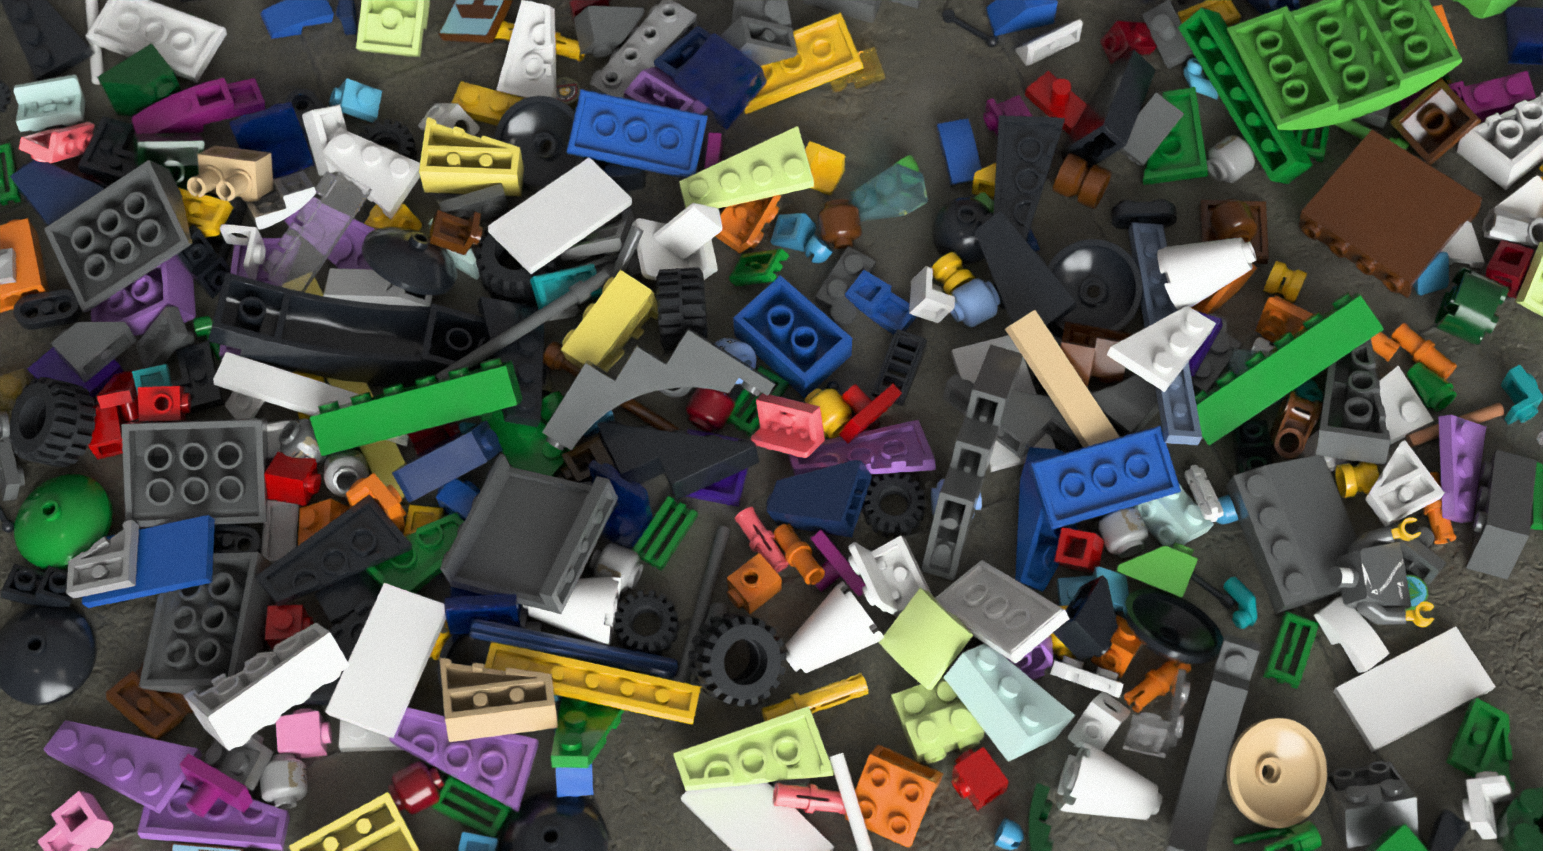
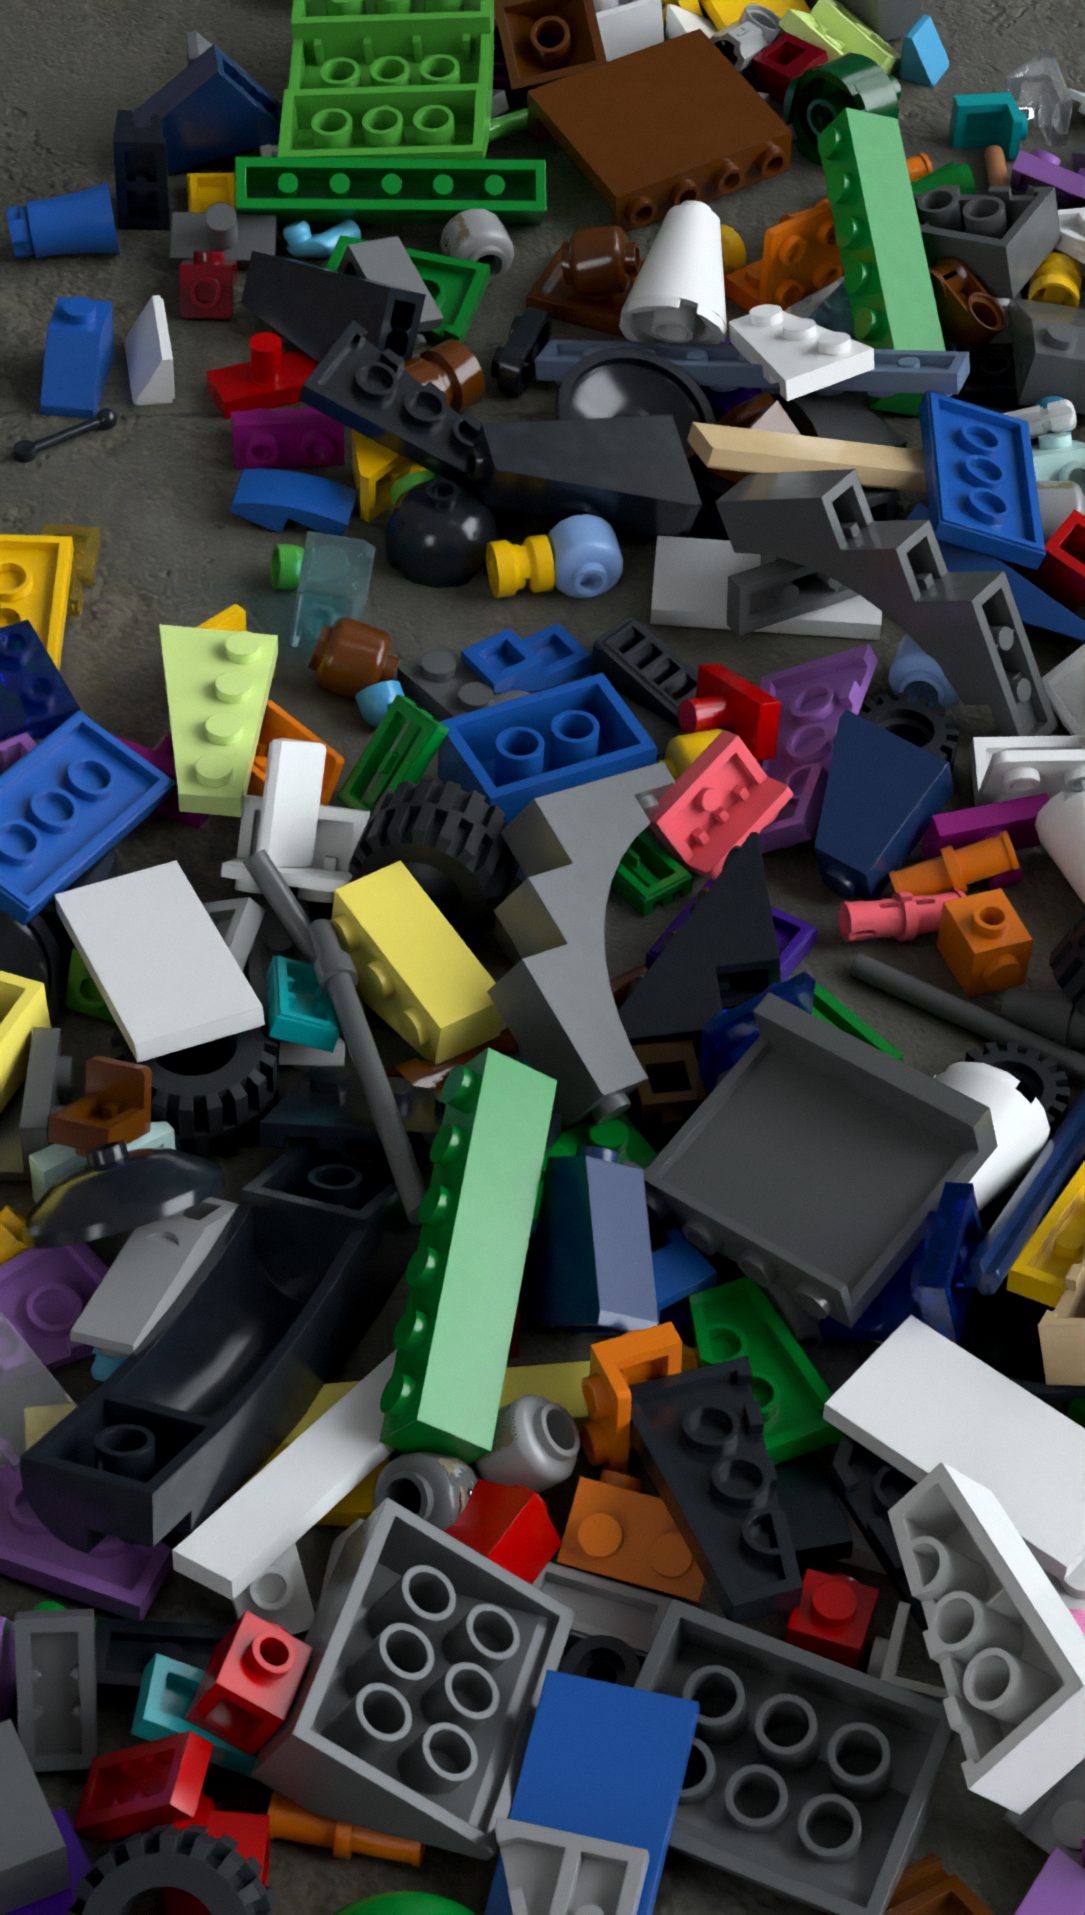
camera: 75 degrees left, 20 degrees down
(709, 409) = (634, 910): dark red head -> none
(793, 231) = (332, 722): dark azure slope -> none
(928, 299) = (549, 592): white panel -> none

